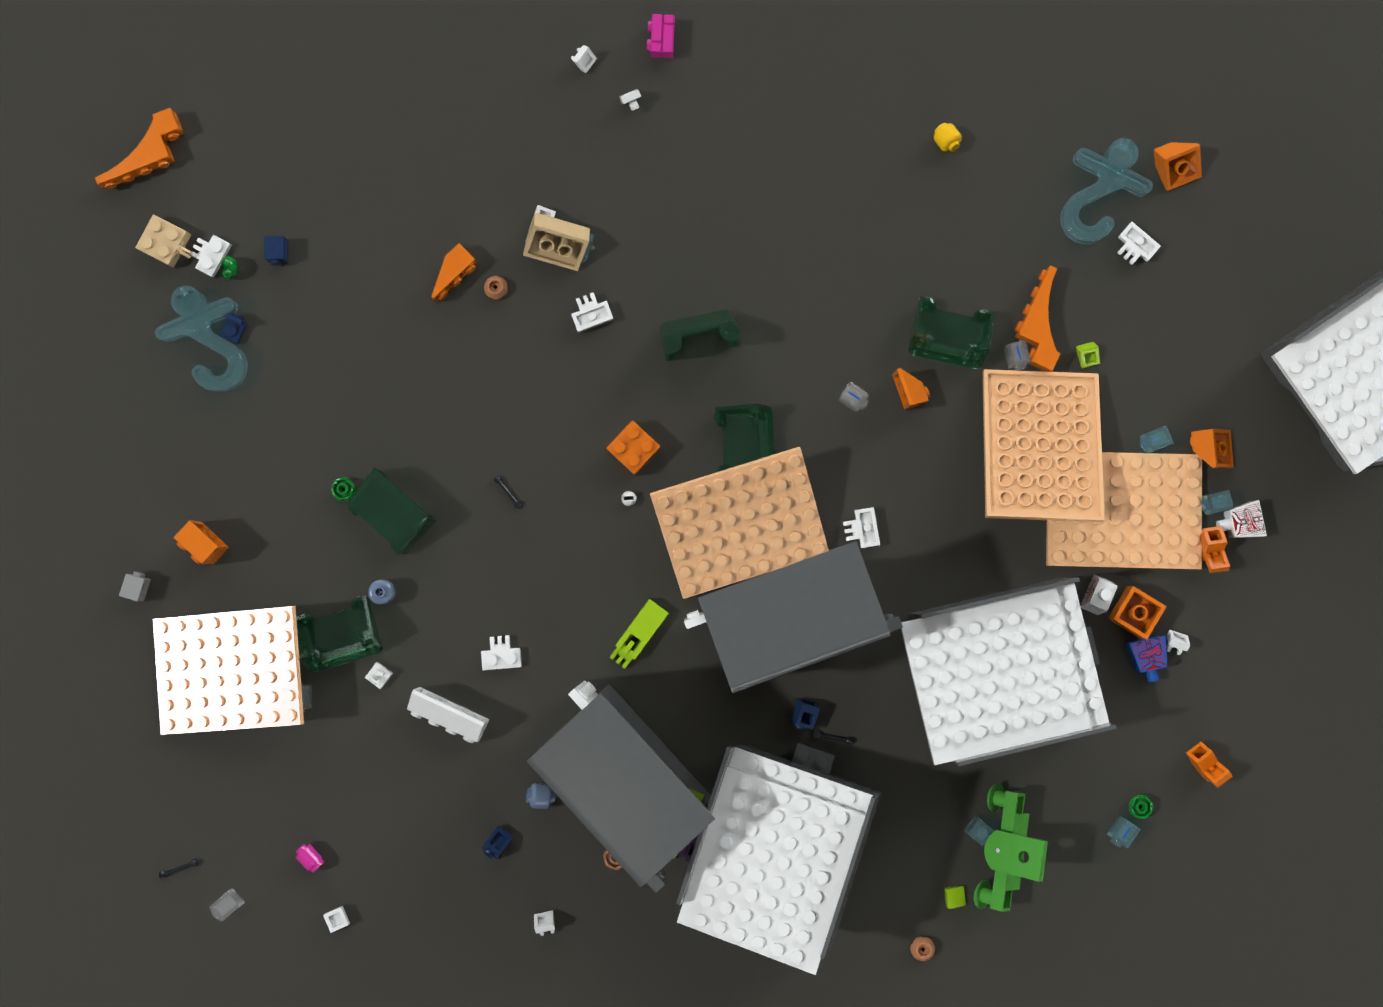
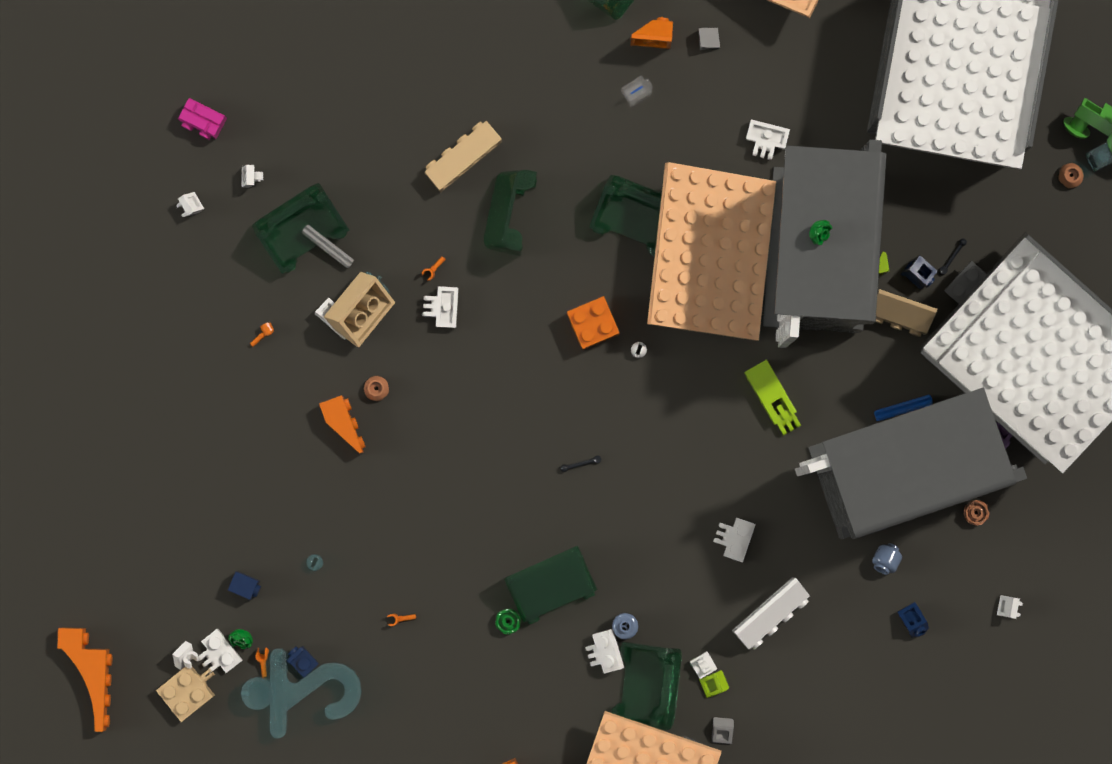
camera: 65 degrees left, 0 degrees up
(192, 224) = (184, 655): none -> white tile
(221, 292) = (262, 659): none -> orange hand
(305, 394) = (401, 618): none -> orange hand
(323, 305) = (318, 565): none -> clear light blue hinge
(329, 717) = (722, 730): none -> light grey slope
(352, 585) = (605, 651): none -> white hinge
(366, 692) = (714, 683): none -> lime slope
(505, 172) = (267, 330): none -> orange hand
(599, 192) = (327, 246): none -> light grey axle
(604, 159) = (283, 227): none -> clear green windscreen
(620, 290) = (434, 268): none -> orange hand
(680, 752) = (902, 408): none -> blue axle
(729, 272) = (463, 156): none -> tan brick
(761, 714) = (904, 313): none -> tan slope
(790, 606) = (820, 231): none -> green plate
(796, 678) = (883, 265): none -> lime slope
(928, 439) = (708, 38): none -> light grey slope
(946, 806) = (1064, 175): none -> nougat plate

